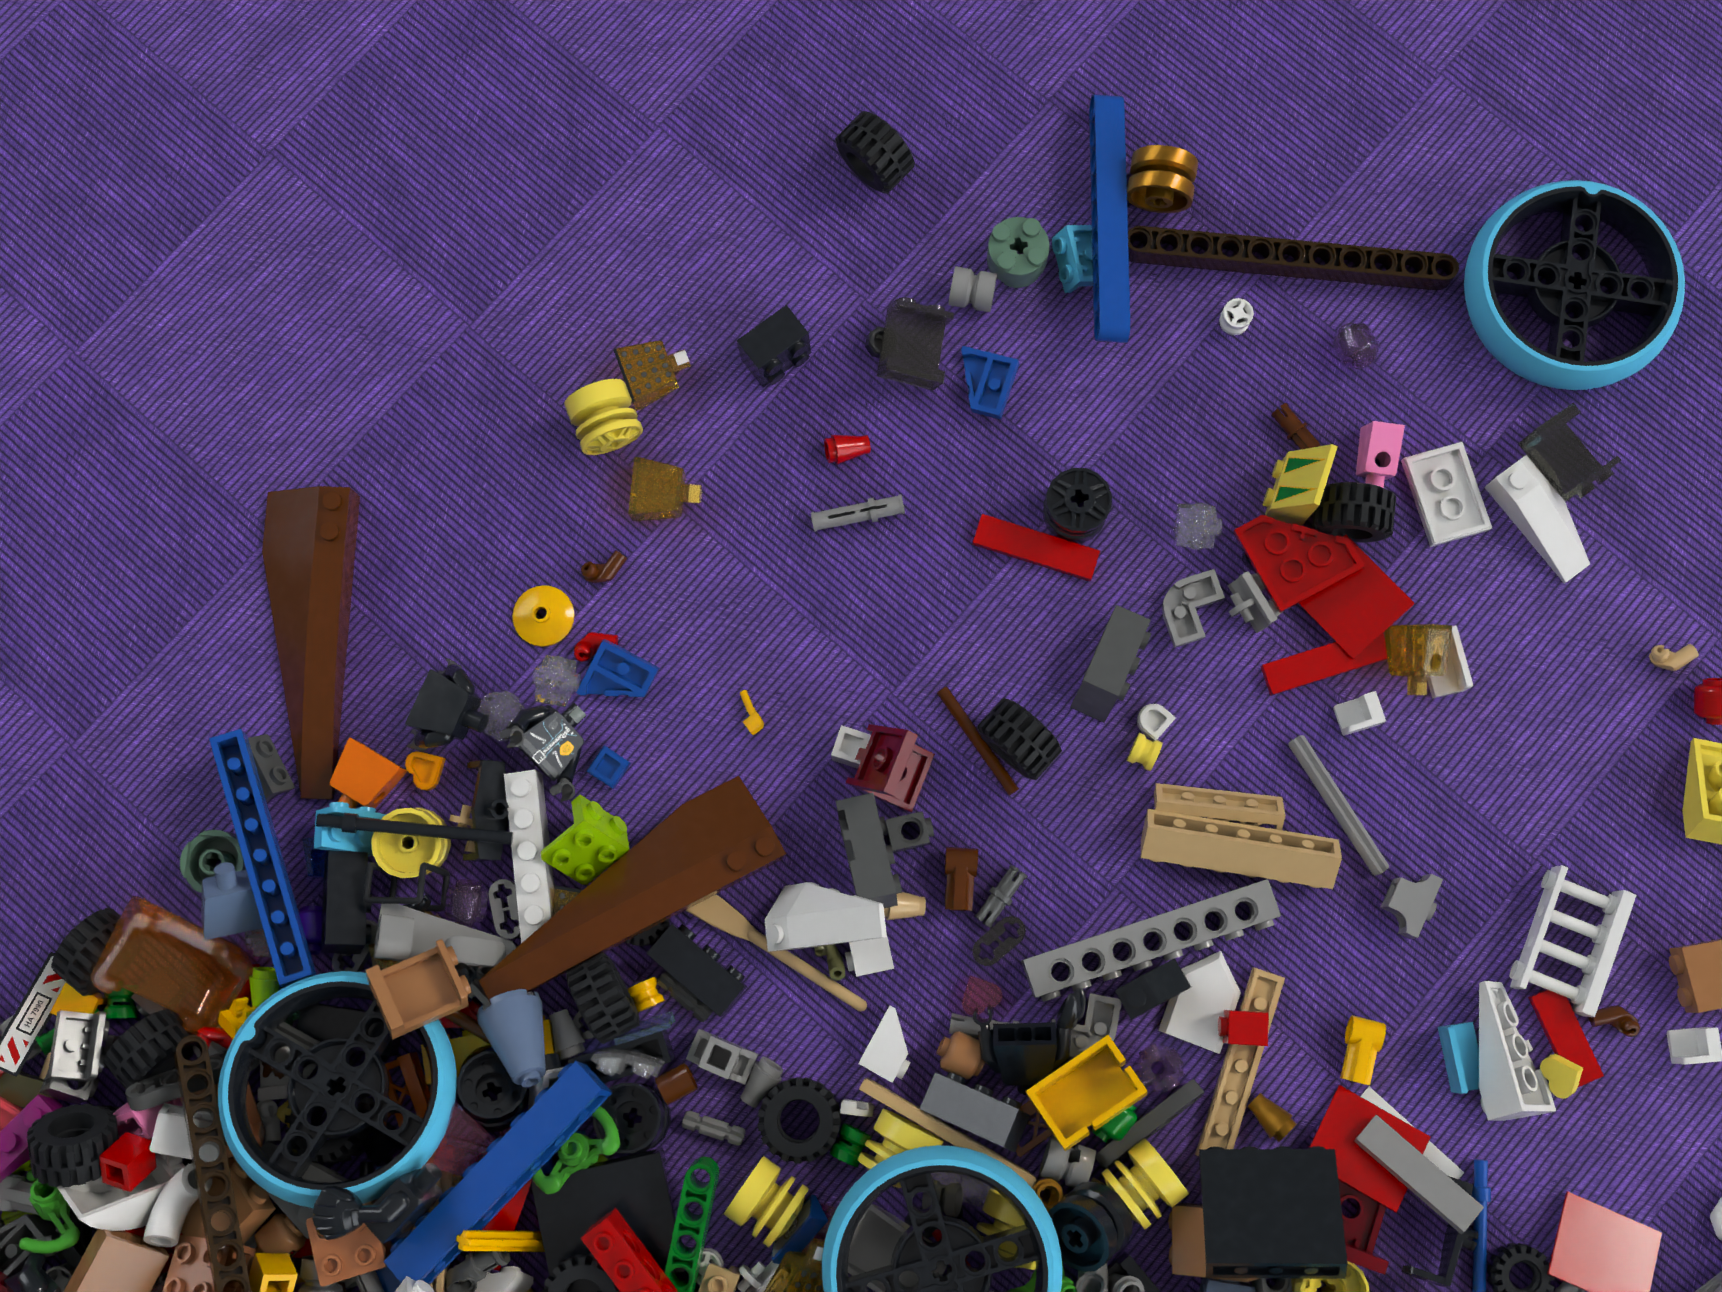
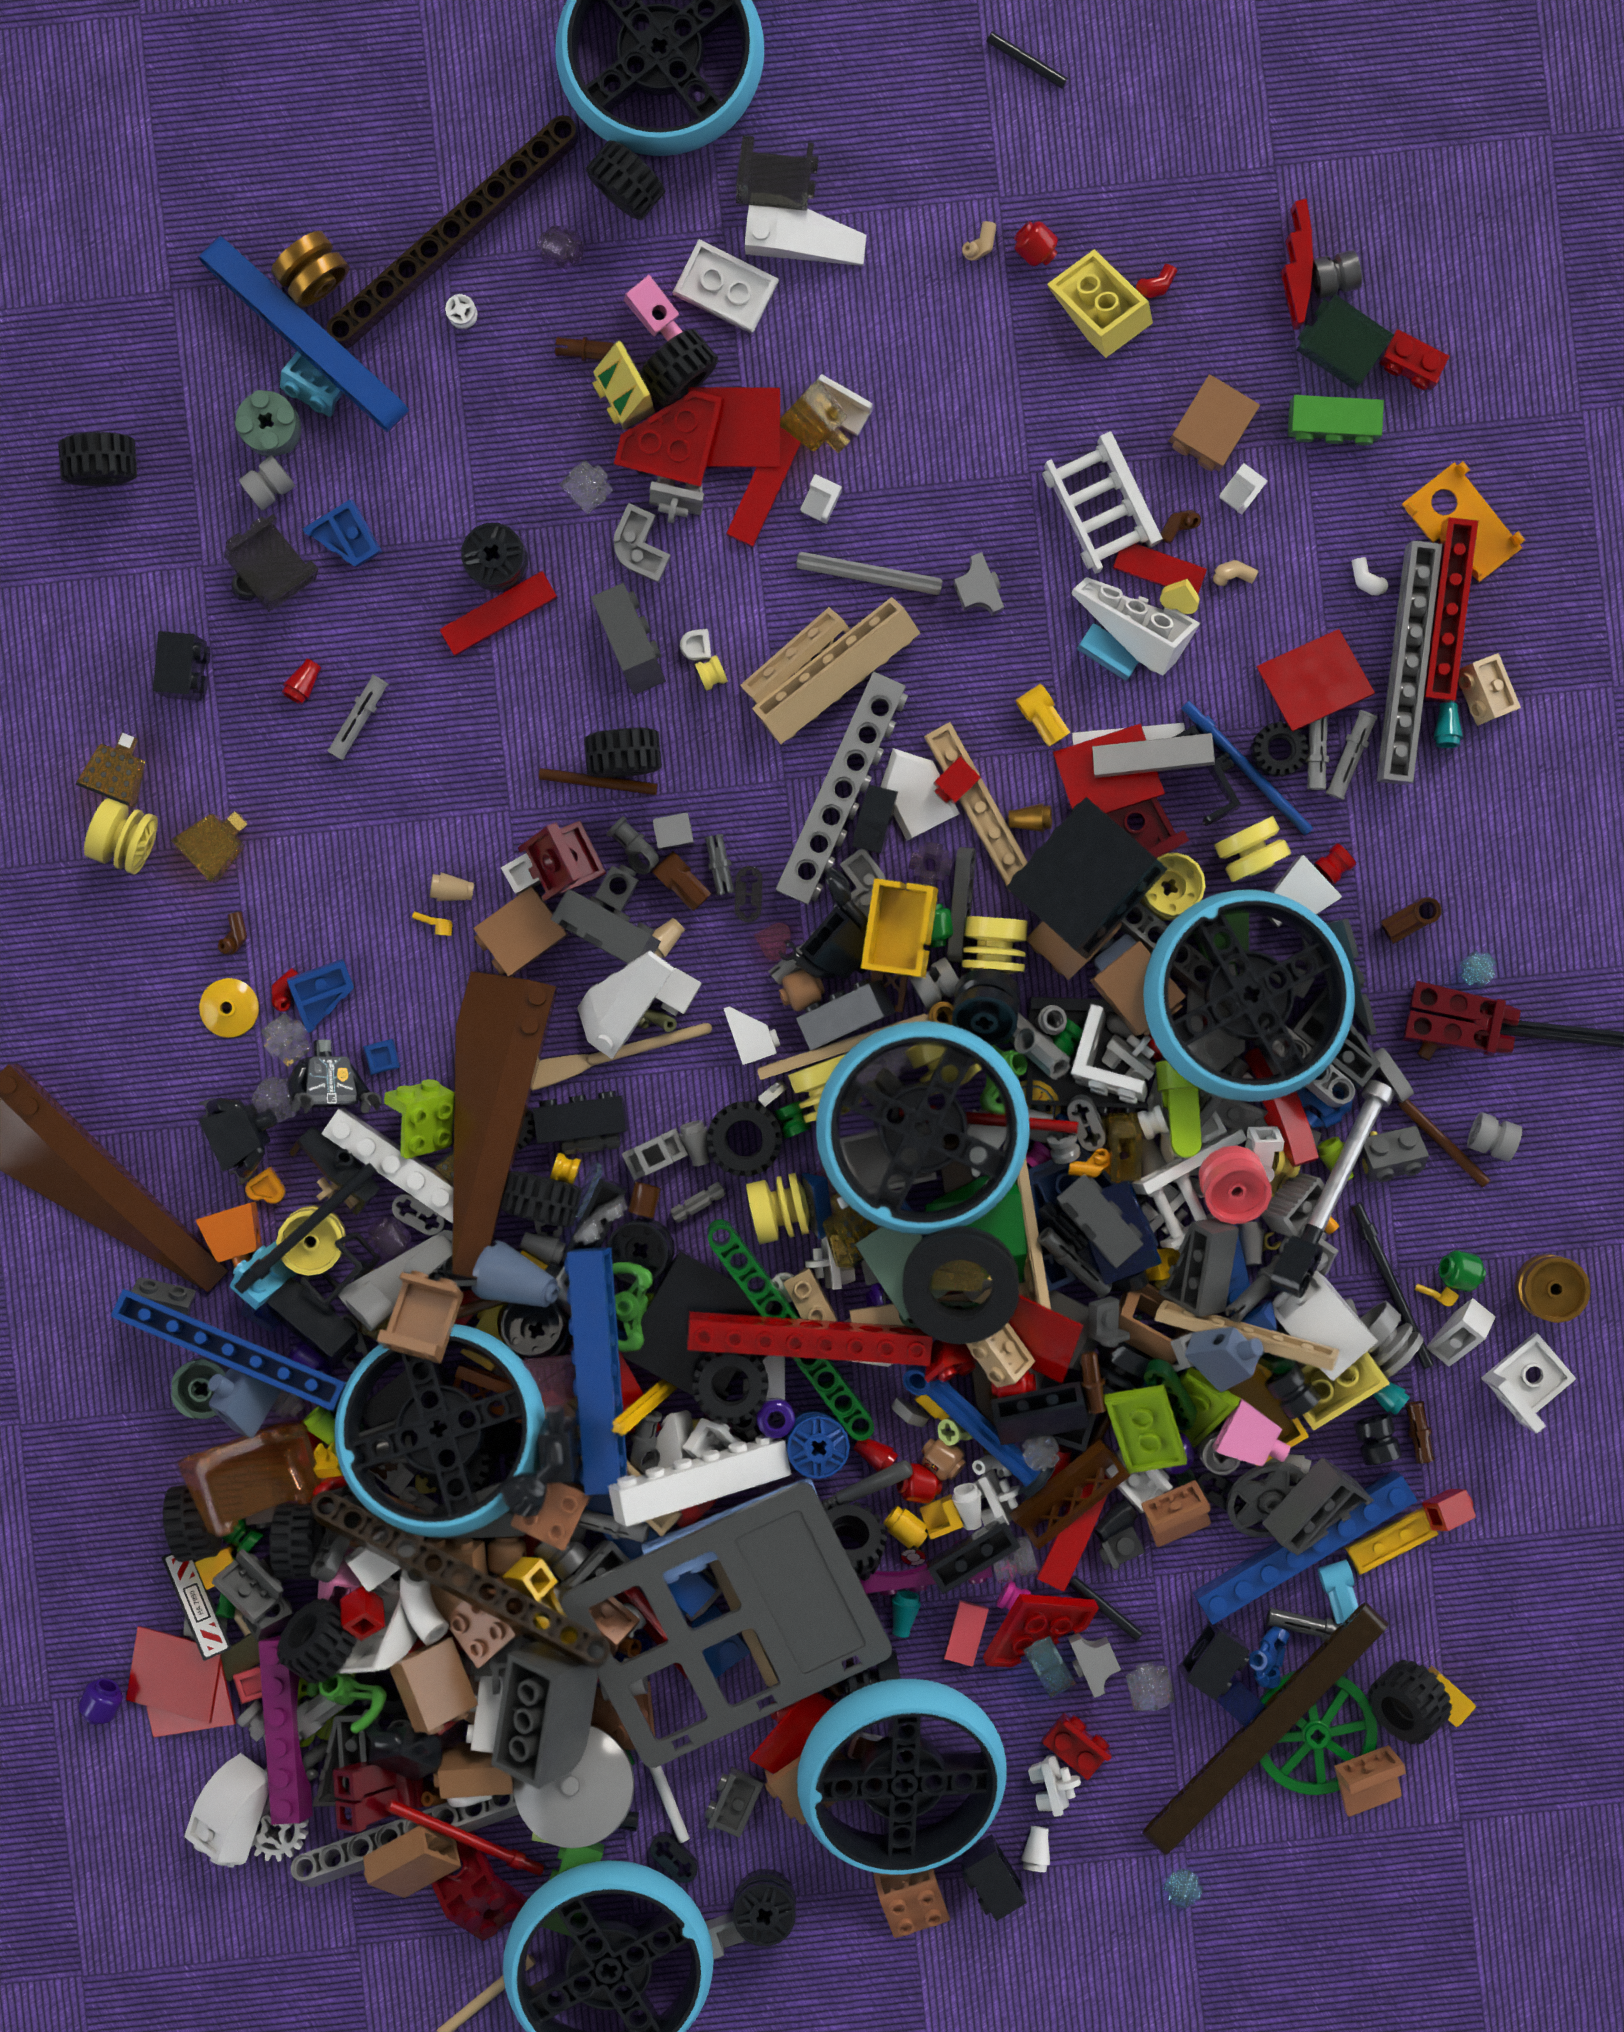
camera: 55 degrees left, 10 degrees up
(789, 701) = (450, 888): none -> tan cone
(803, 786) = (519, 932): none -> medium nougat brick
(954, 813) = (634, 845): none -> dark grey connector
(993, 835) = (673, 831): none -> light grey panel
(1454, 345) = (625, 180): none -> black tyre
(1623, 1098) = (1234, 569): none -> tan arm

